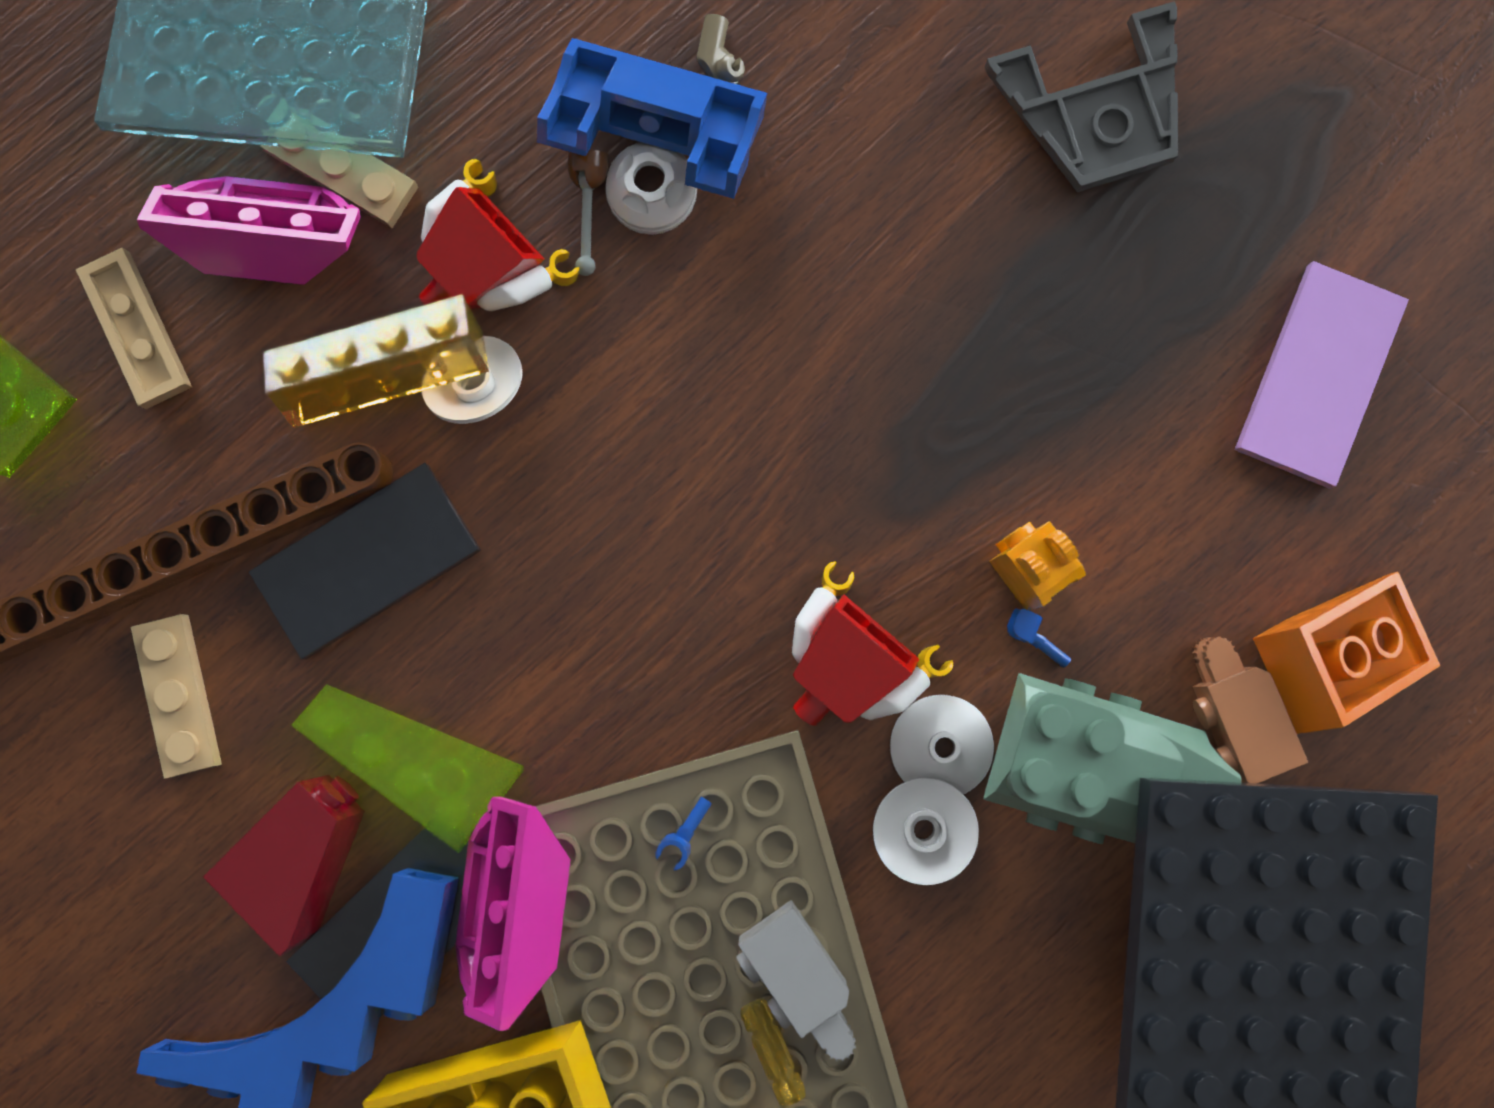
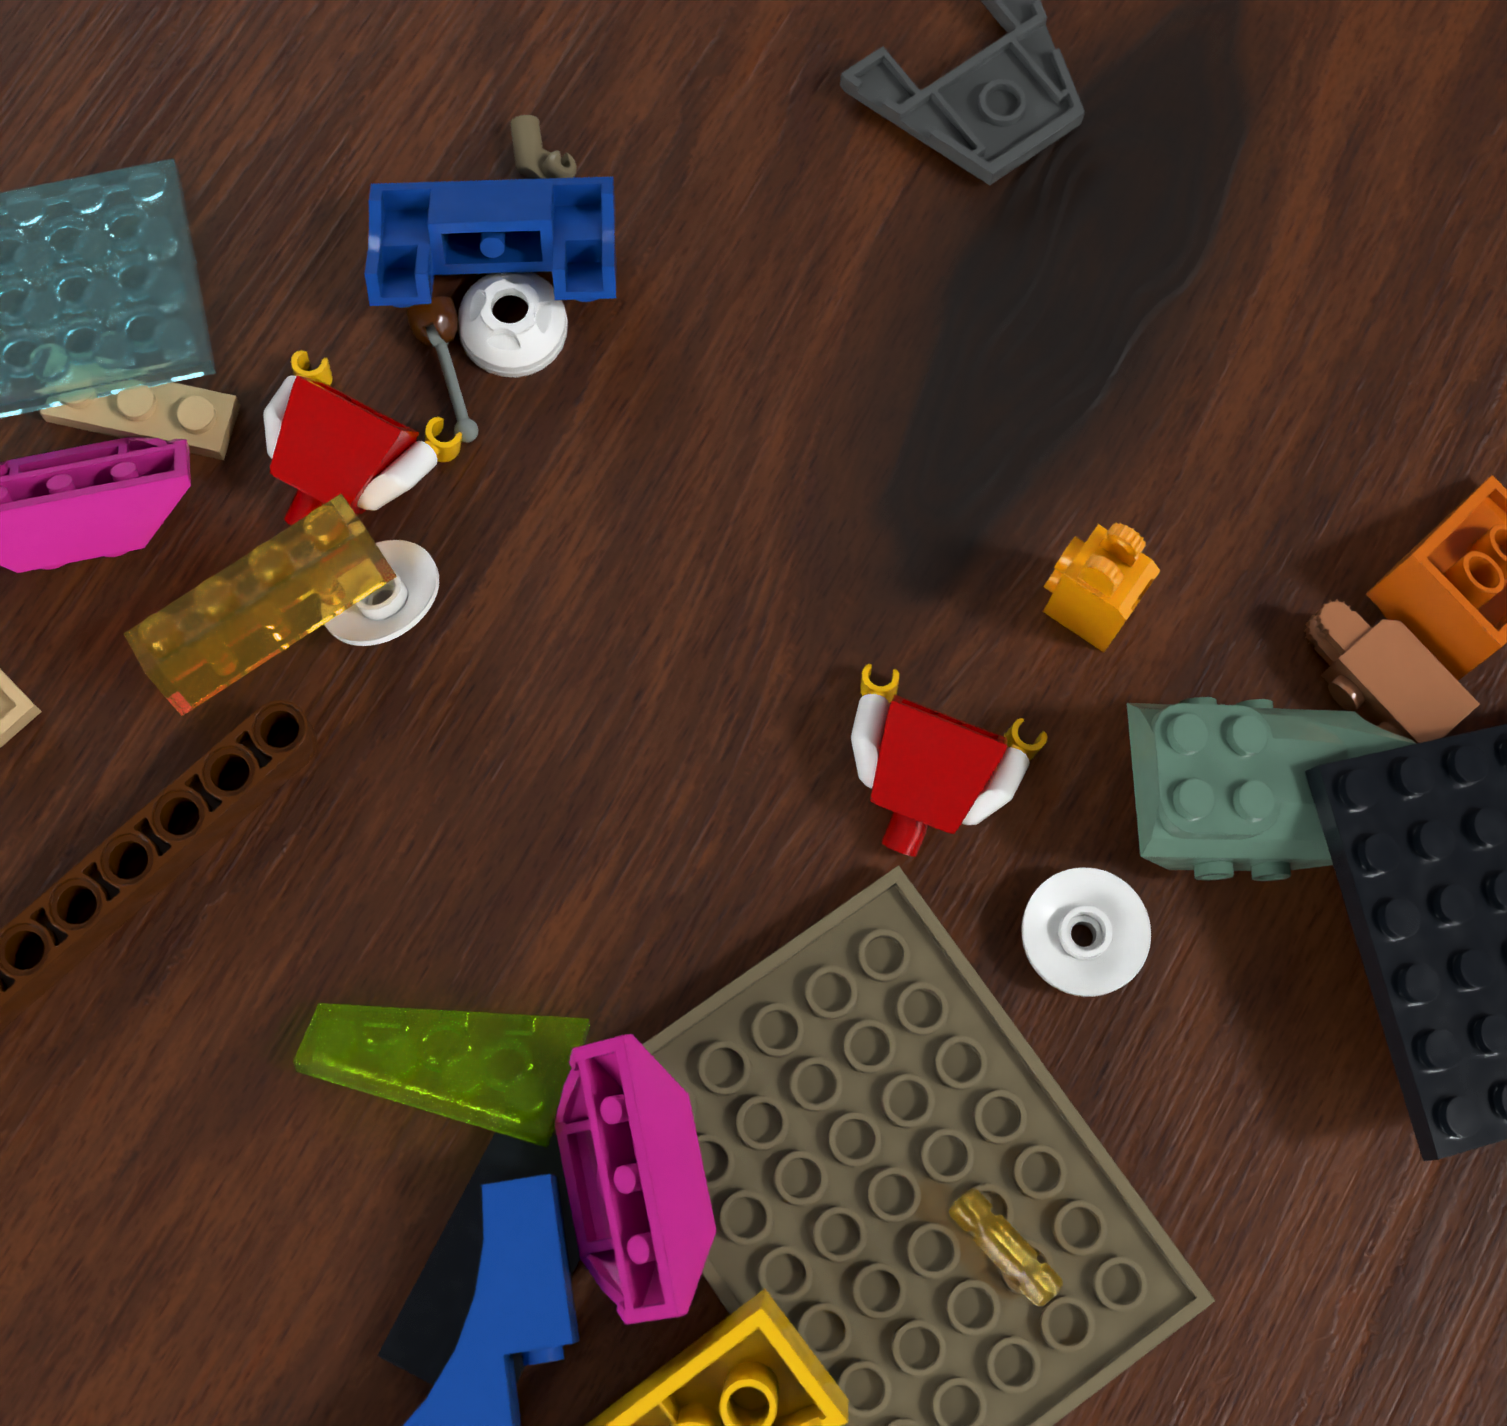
camera: 30 degrees left, 10 degrees down
(176, 696) = (135, 1082): tan plate -> none
(291, 861) = (348, 1215): dark red slope -> none
(364, 561) = (316, 845): black tile -> none
(685, 833) = (811, 1021): blue hand -> none
(800, 977) = (1006, 1143): light grey hinge -> none
(939, 717) = (1035, 836): white dish -> none
(1024, 627) = (1110, 670): blue hand -> none
(1321, 375) = (1327, 296): lavender tile -> none

